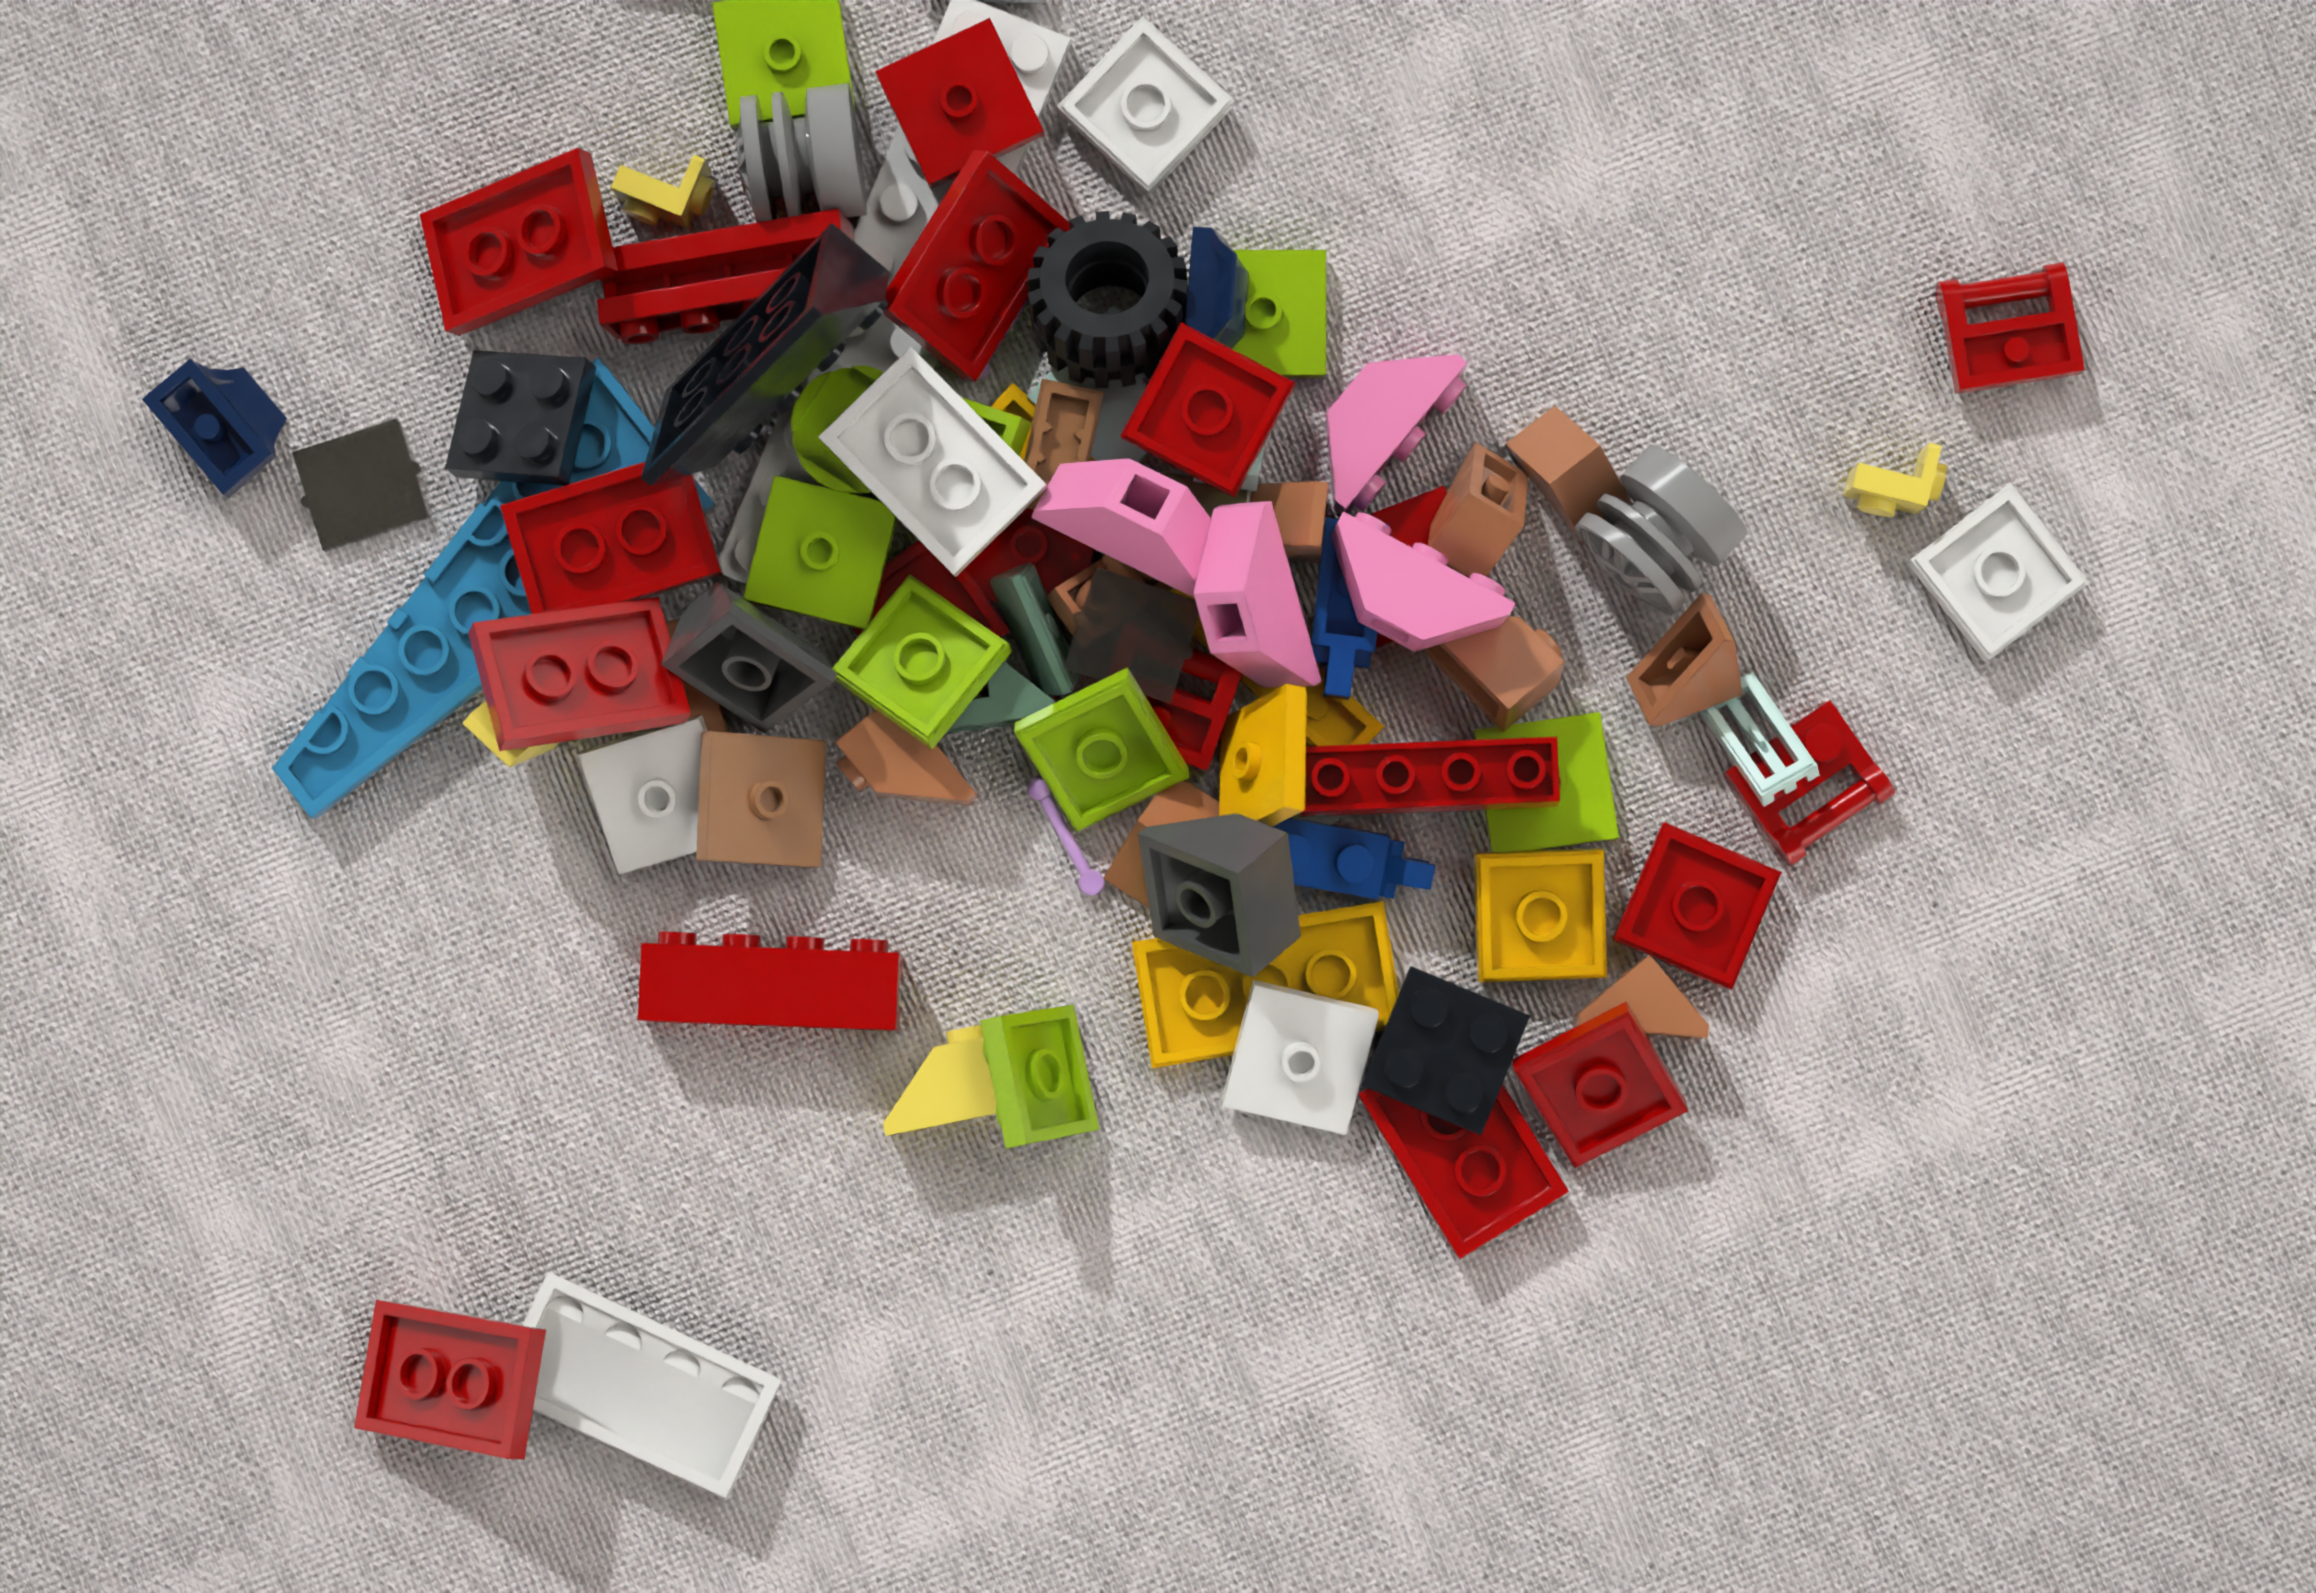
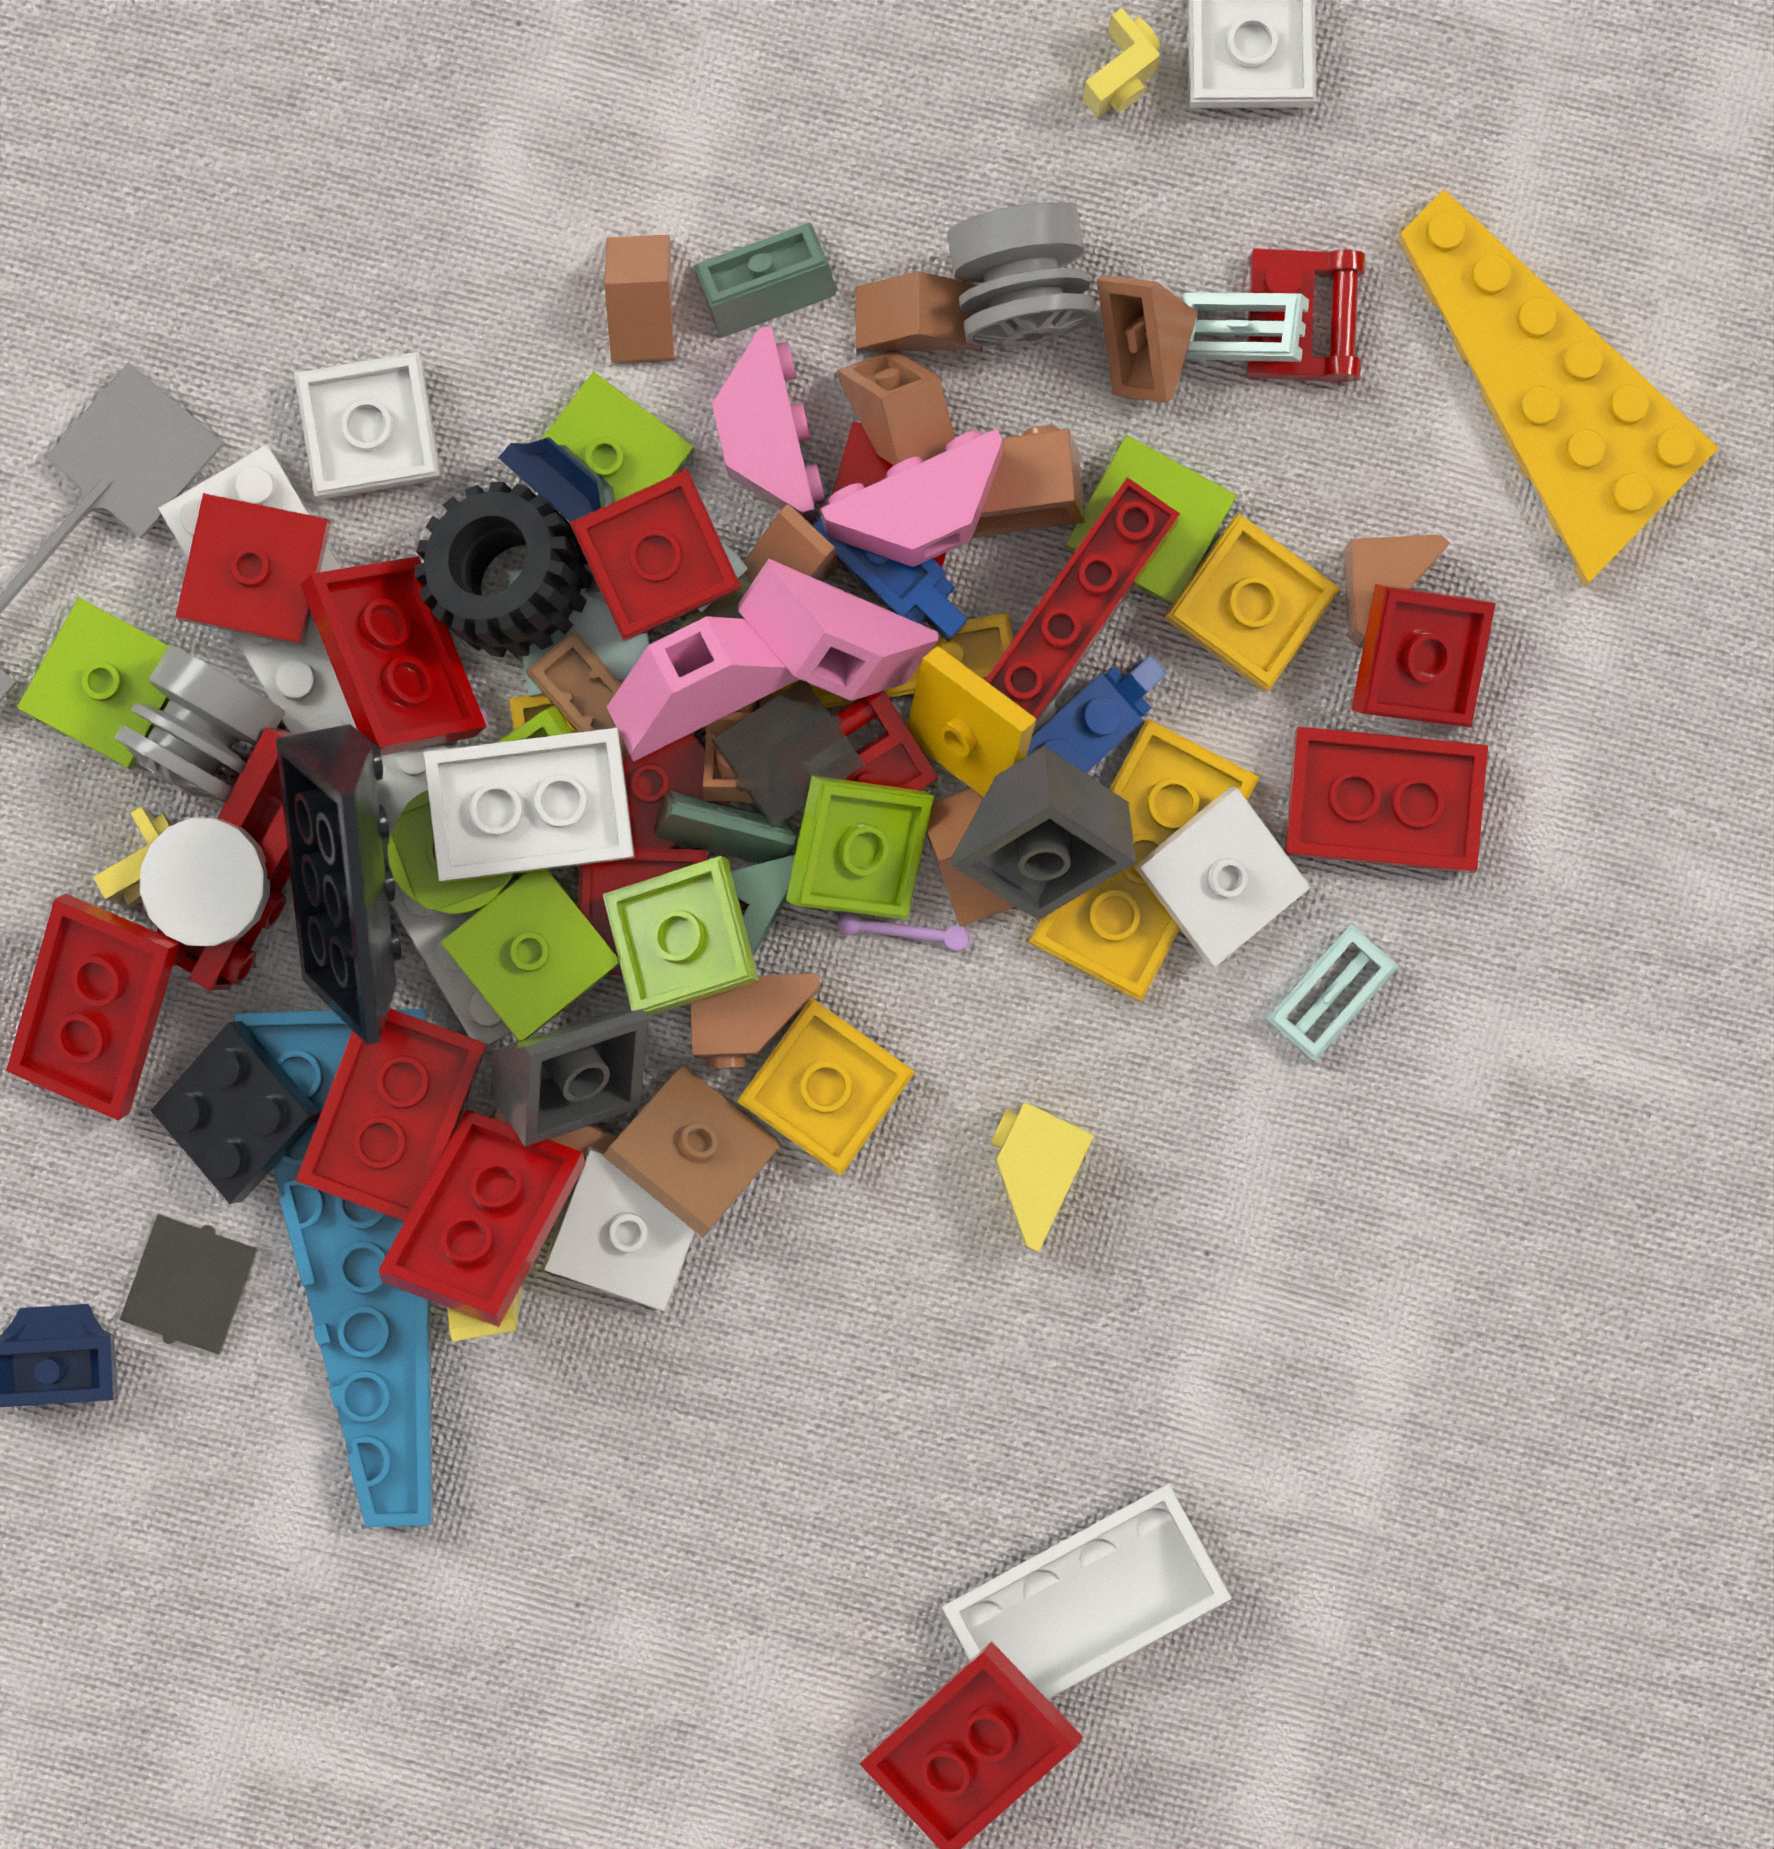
camera: 55 degrees left, 0 degrees up
(680, 254) = (204, 882): none -> white tile
(770, 985) = (846, 1256): red brick -> none
(892, 868) = (826, 1086): none -> yellow plate
(1039, 1075) = (1083, 1093): lime plate -> none
(1329, 1220) = (1296, 1032): none -> light aqua tile
(1413, 241) = (639, 298): none -> nougat slope
(1445, 1050) = (1304, 757): black plate -> none
(1505, 330) = (765, 279): none -> sand green slope
(1696, 906) = (1336, 475): red plate -> none
(1899, 1052) = (1567, 403): none -> yellow wing

